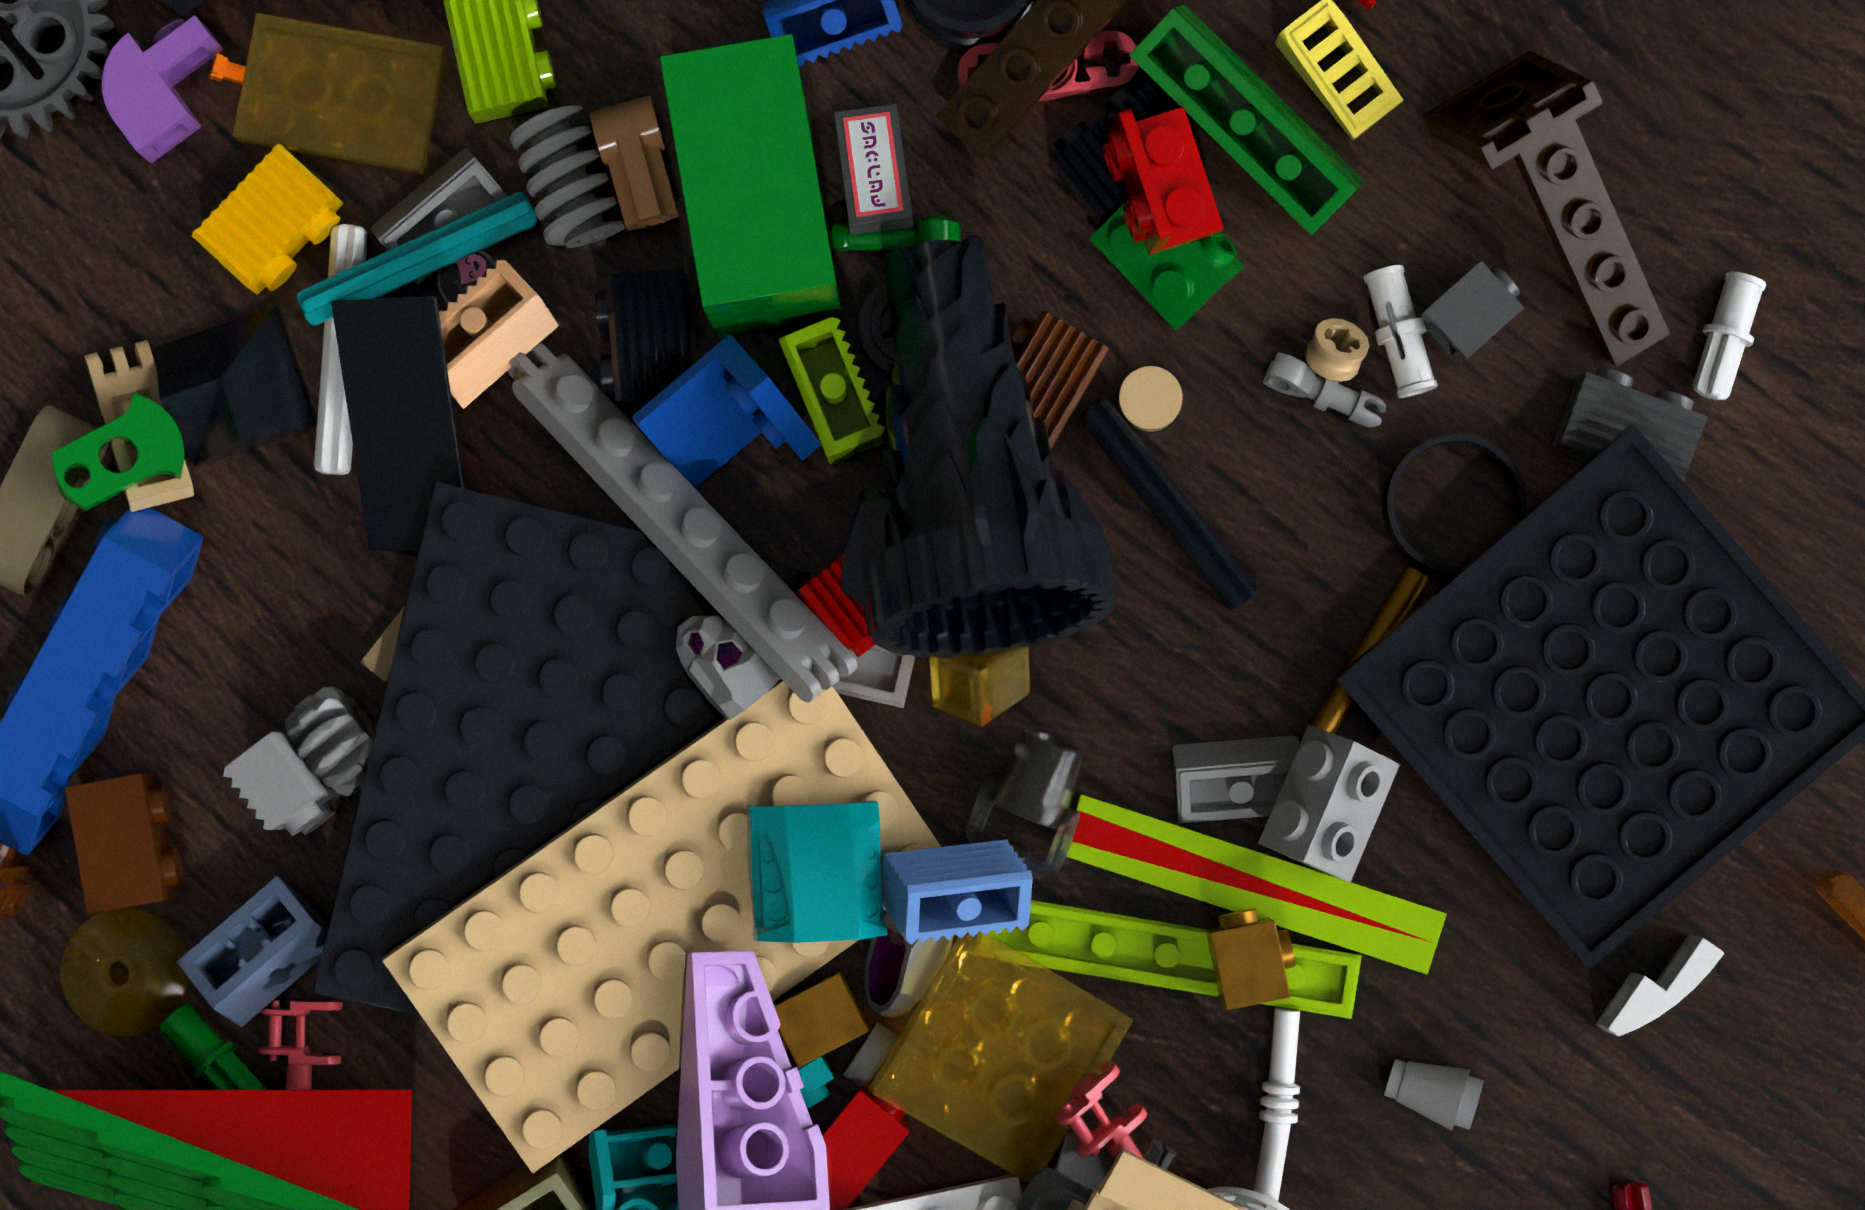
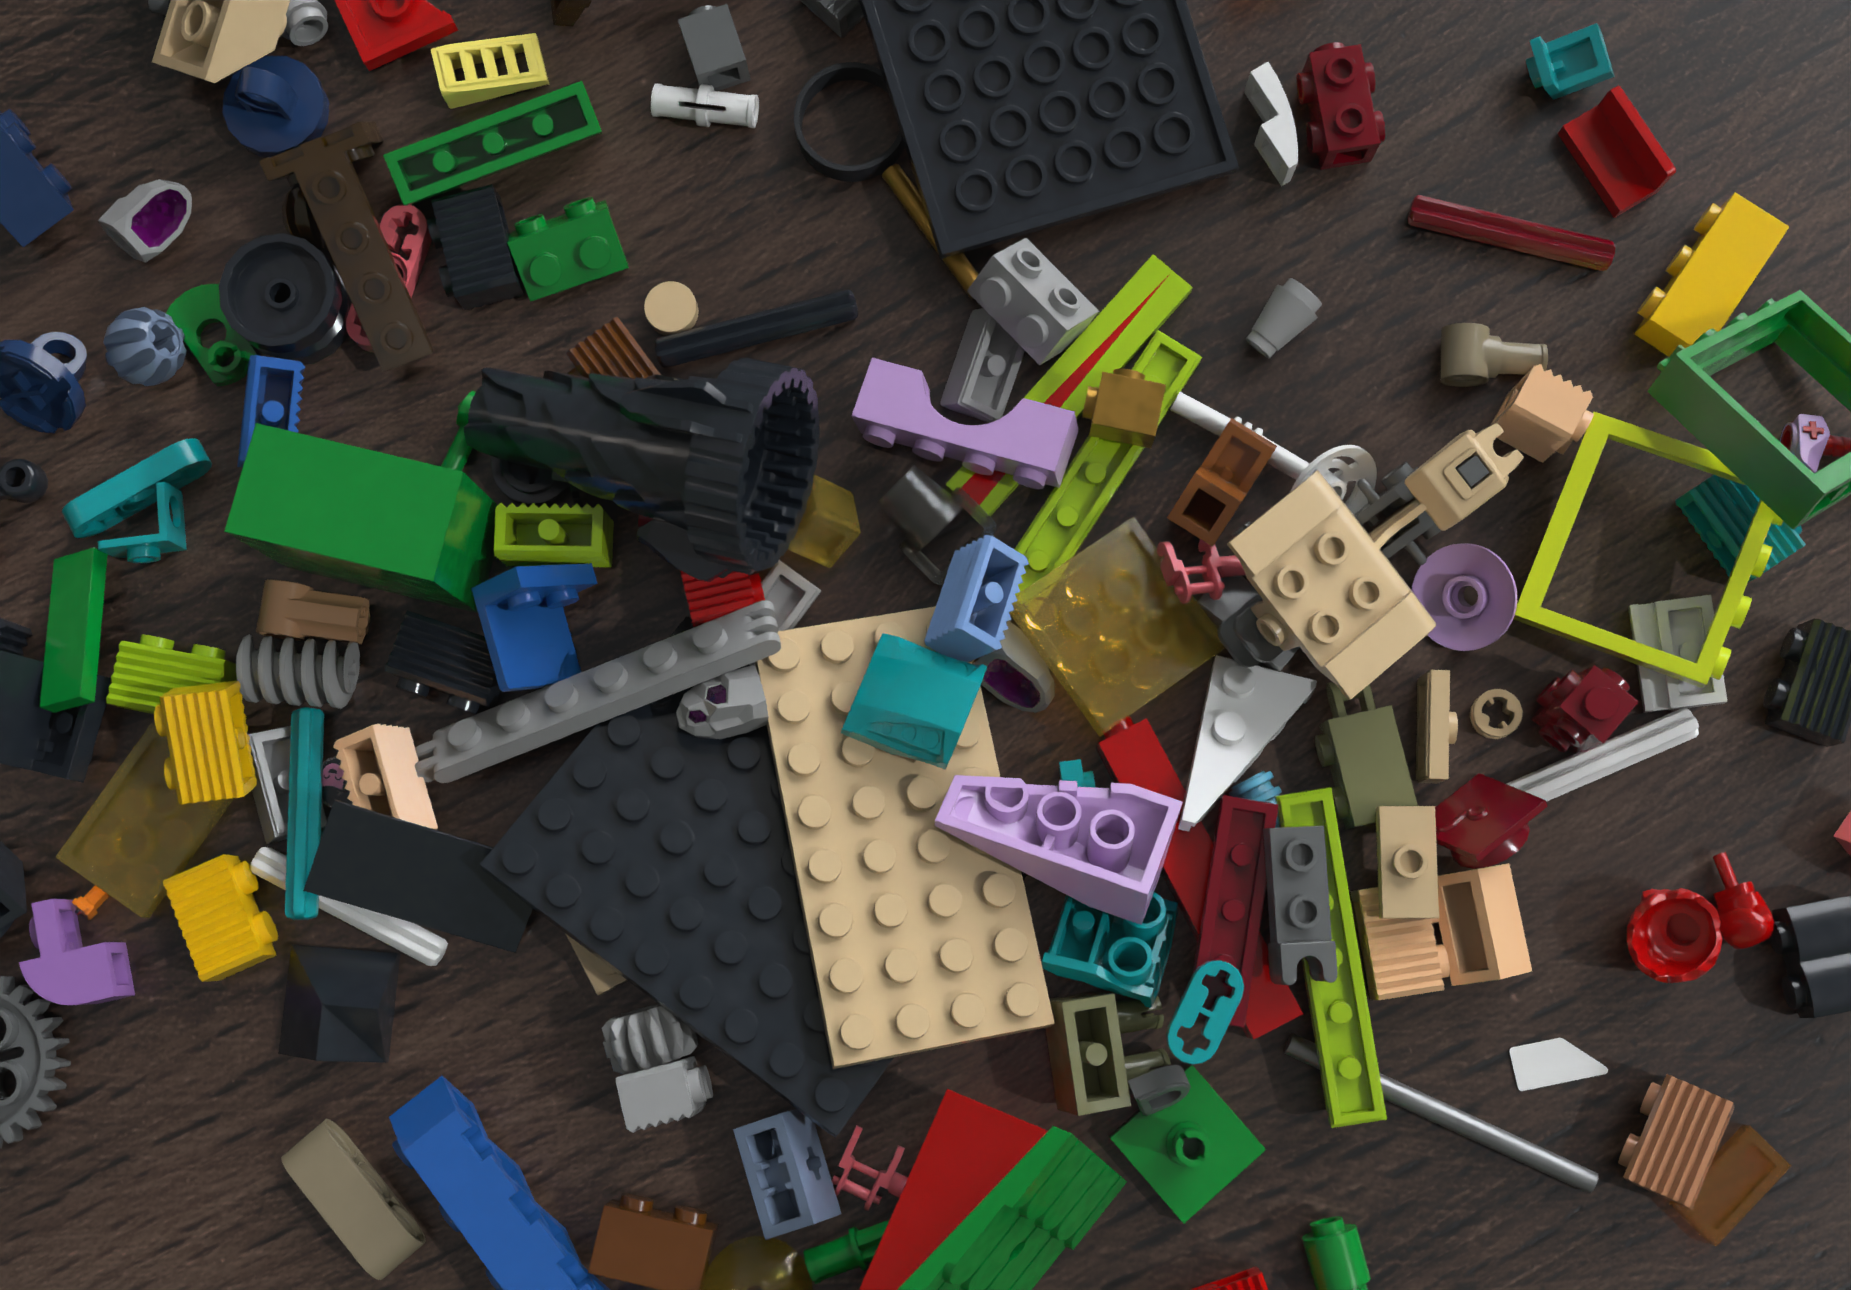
camera: 60 degrees left, 5 degrees down
(114, 398) = (334, 1090): tan hinge -> none
(143, 425) = (330, 1082): green piece -> none
(442, 122) = (206, 742): none -> yellow brick
(819, 1019) = (1031, 750): pearl gold brick -> none
(869, 1054) = (1075, 727): dark grey tile -> none
(873, 169) = (404, 433): tile -> none
(1162, 870) = (1026, 443): none -> lavender arch
(1163, 180) = (506, 220): red bracket -> none
(1210, 1103) = (1222, 482): none -> dark orange brick
(1297, 379) = (705, 195): light grey piece -> none
(1337, 349) = (697, 155): tan bush -> none
(1727, 1046) = (1340, 106): none -> dark red brick

